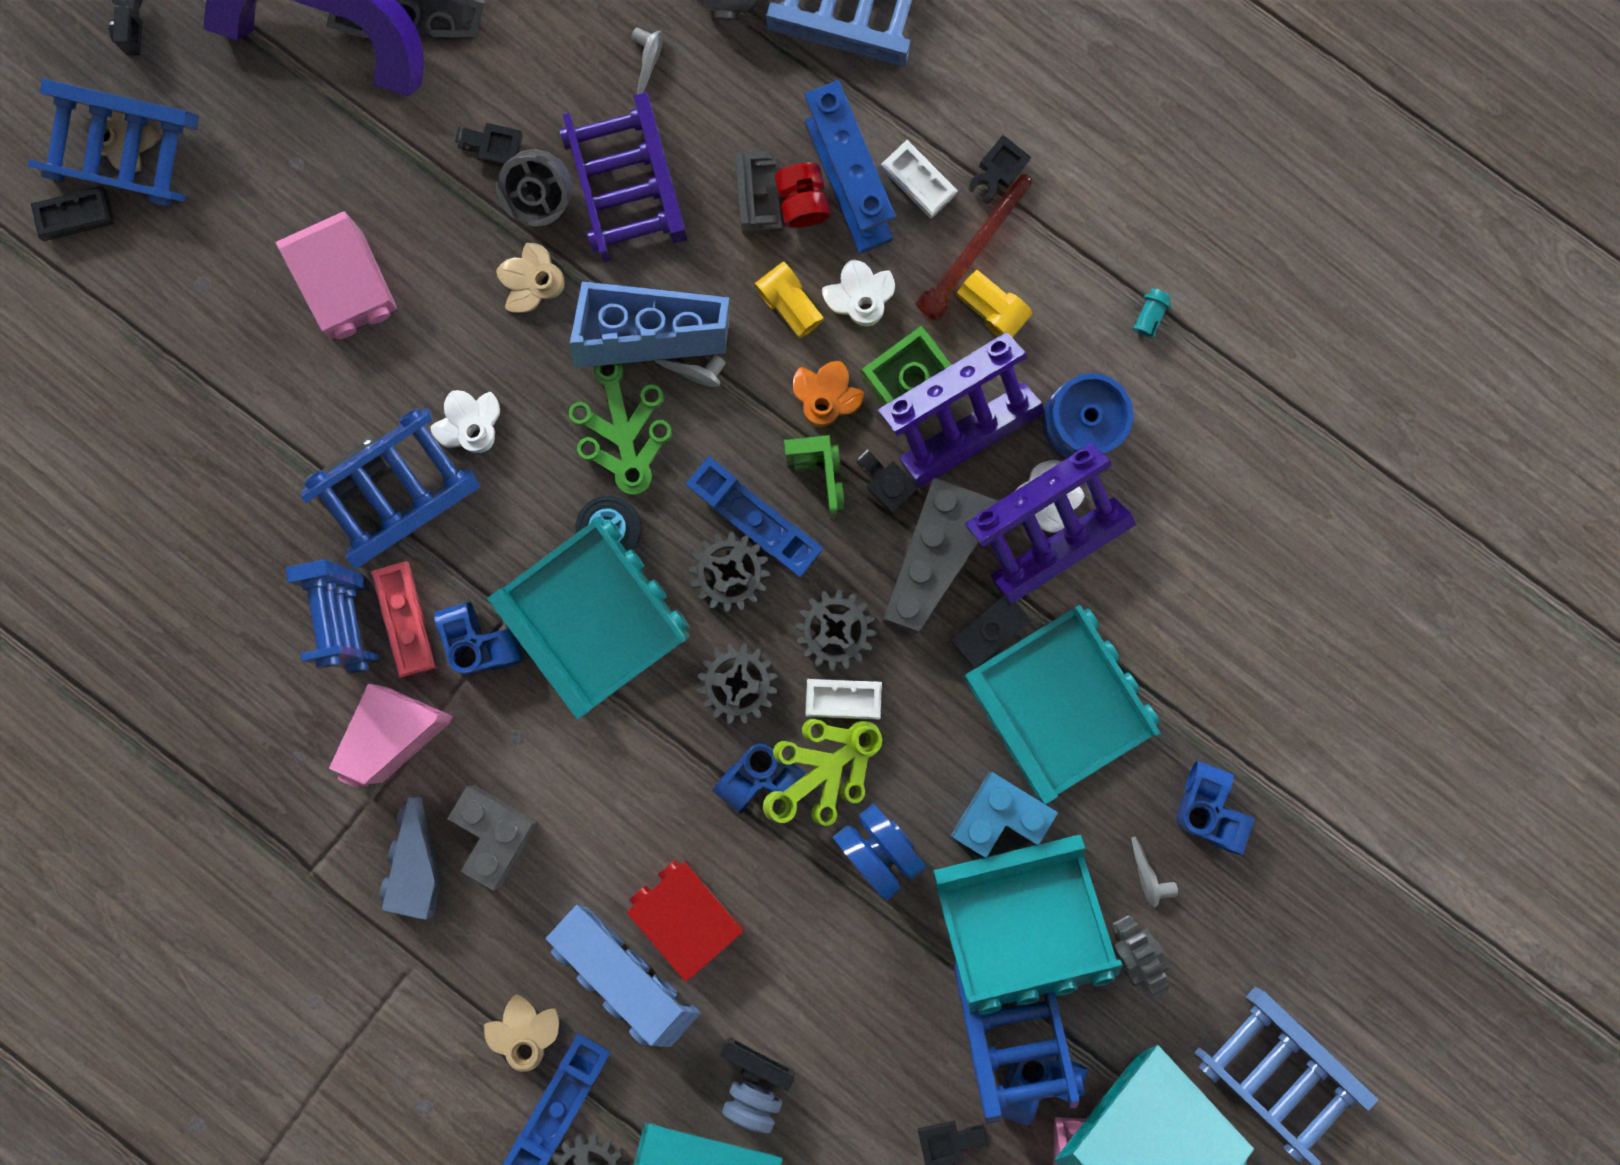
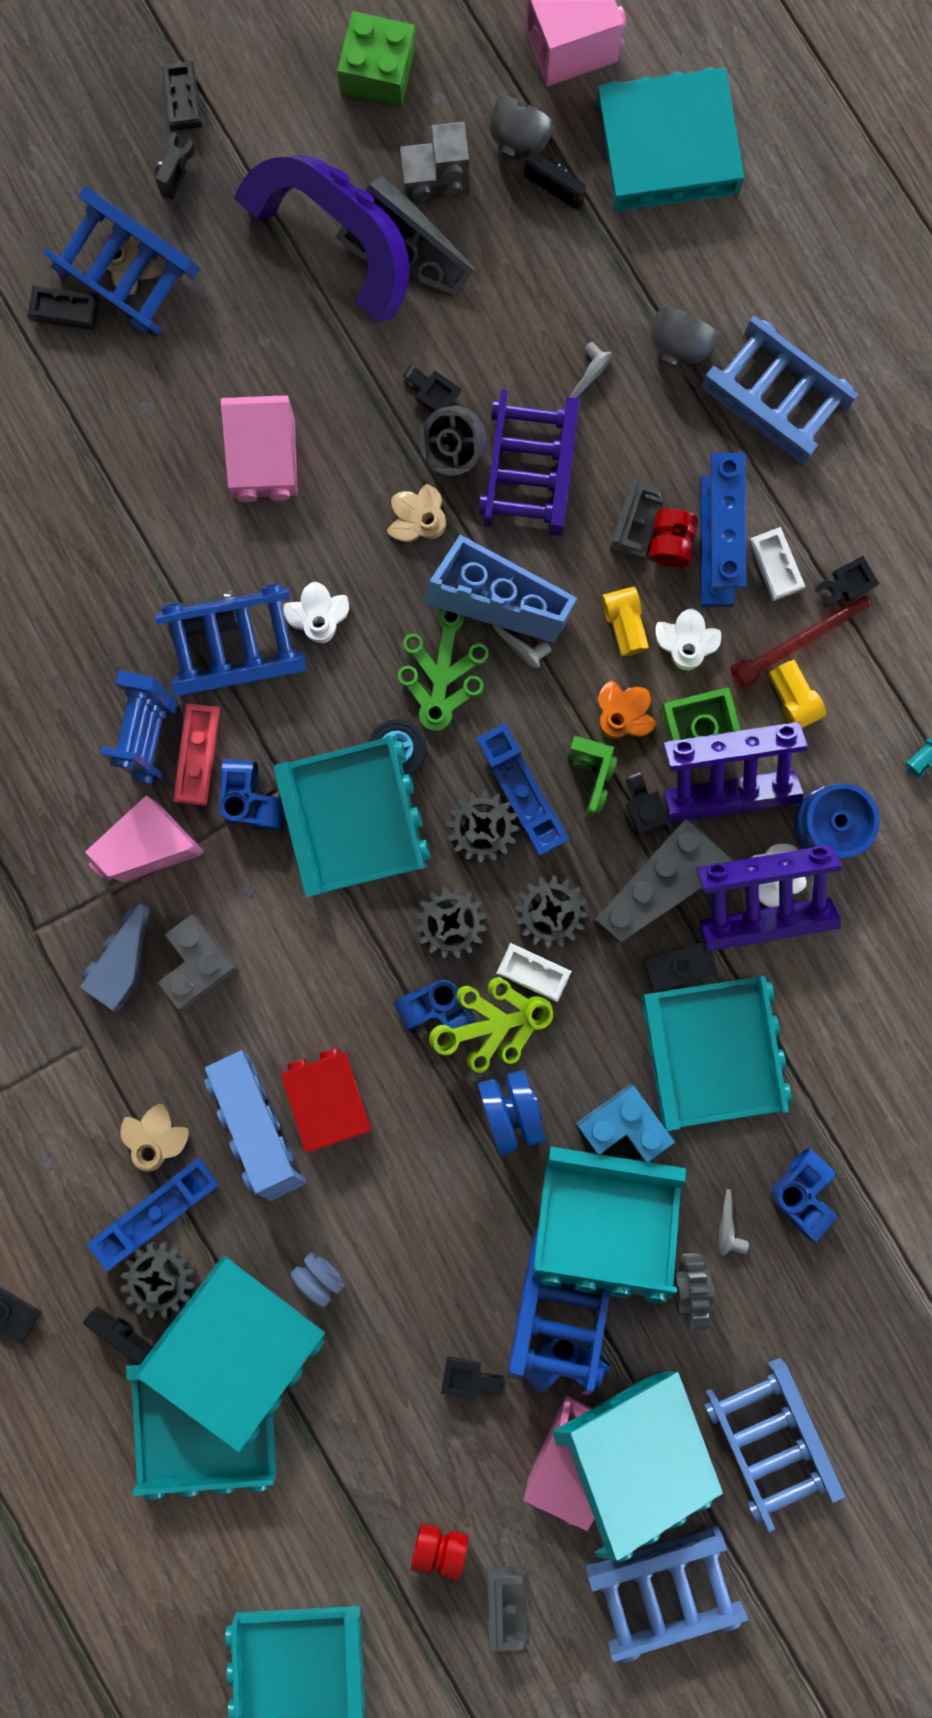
camera: 20 degrees right, 0 degrees up
(756, 1065) = (336, 1247): black plate -> none

